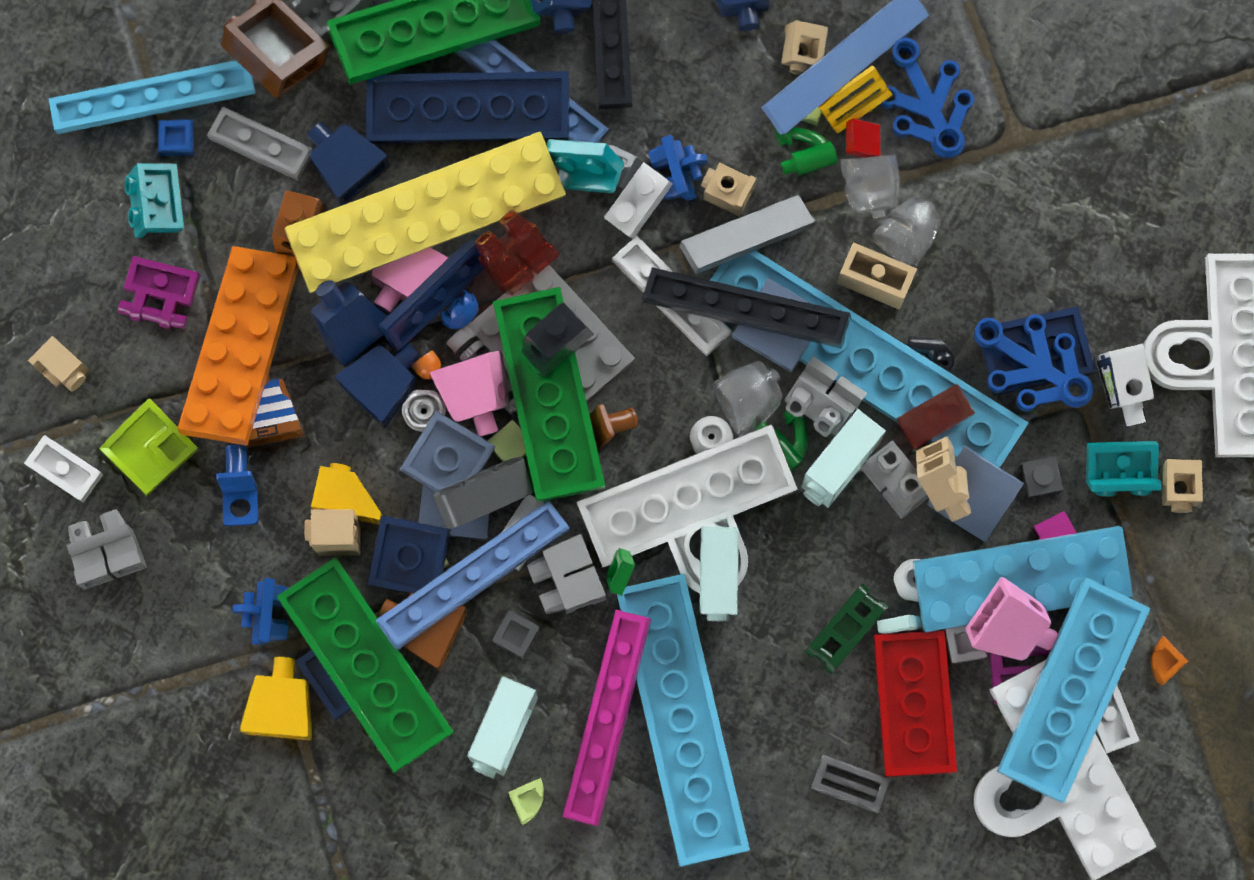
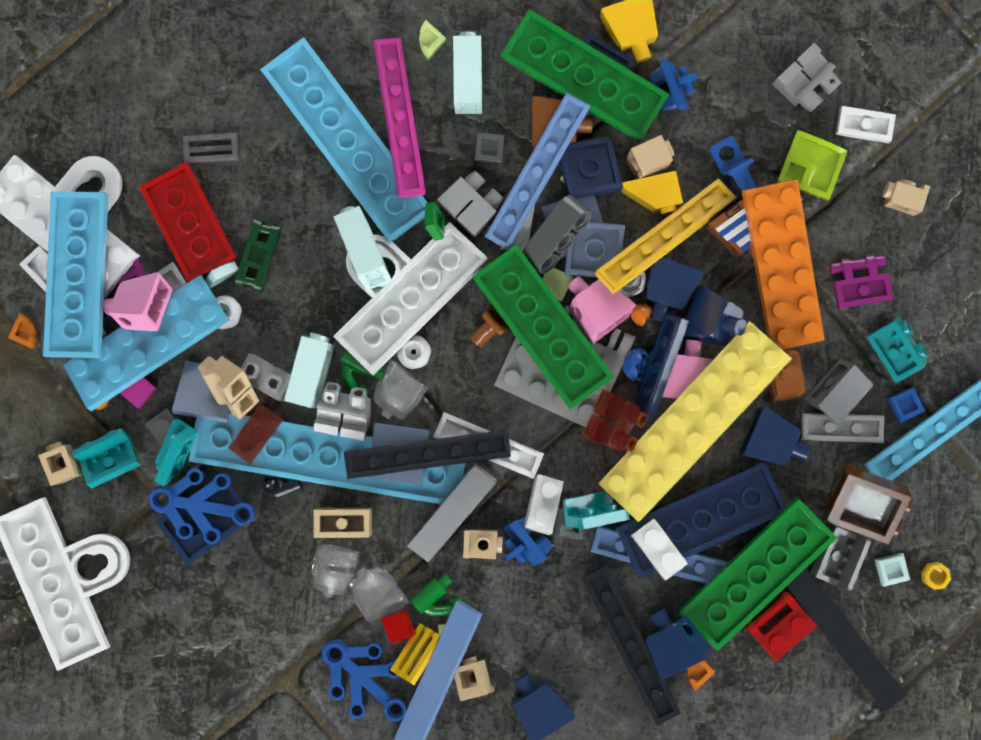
camera: 160 degrees right, 10 degrees up
(244, 182) = (839, 391): none -> panel
(358, 436) = (665, 236): none -> yellow tile
(530, 92) = (659, 549): none -> white plate
(555, 338) = (553, 366): black torso -> none
(1040, 440) = (174, 451): none -> teal bracket
(1129, 368) = (129, 523): white torso -> none

